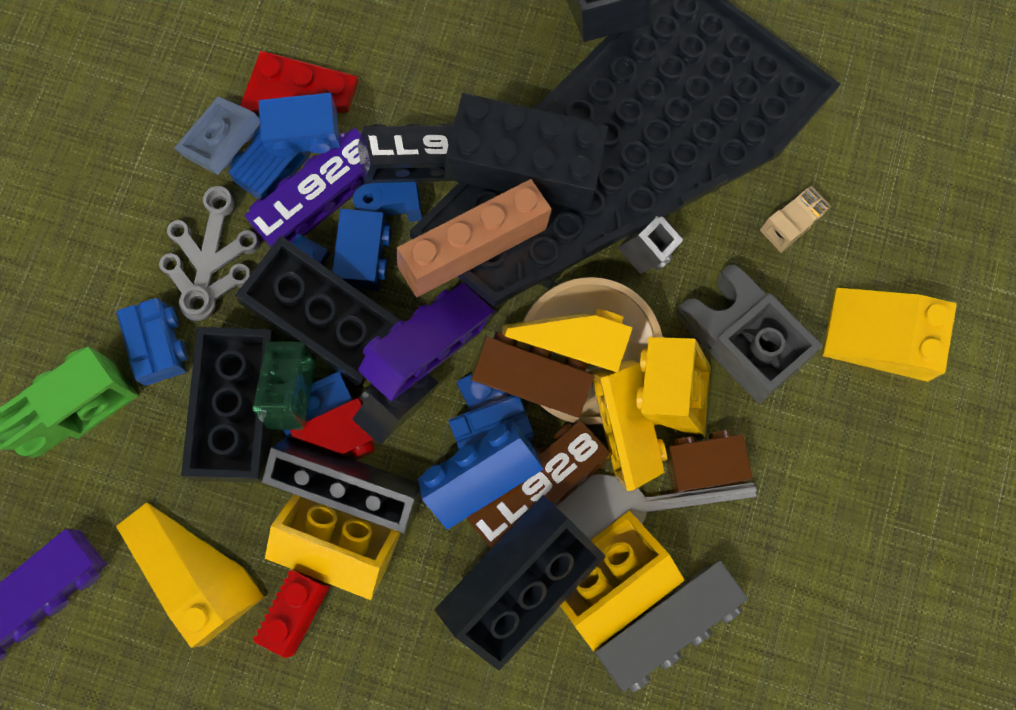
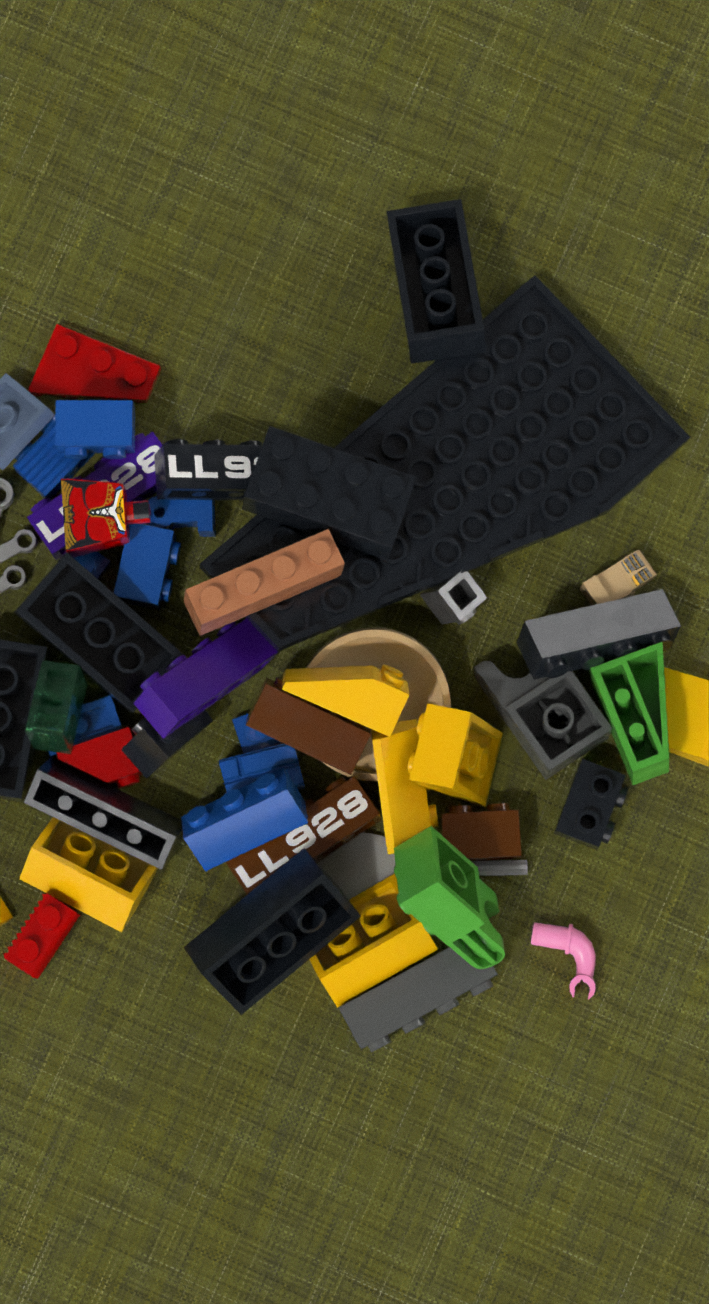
camera: 10 degrees right, 5 degrees up
(309, 202) = (98, 515): none -> torso
(693, 527) = (448, 897): none -> bright green brick
(792, 261) = (596, 634): none -> brick
(807, 422) = (591, 804): none -> black brick
(813, 558) = (574, 943): none -> bright pink piece
(840, 319) = (635, 707): none -> bright green wedge

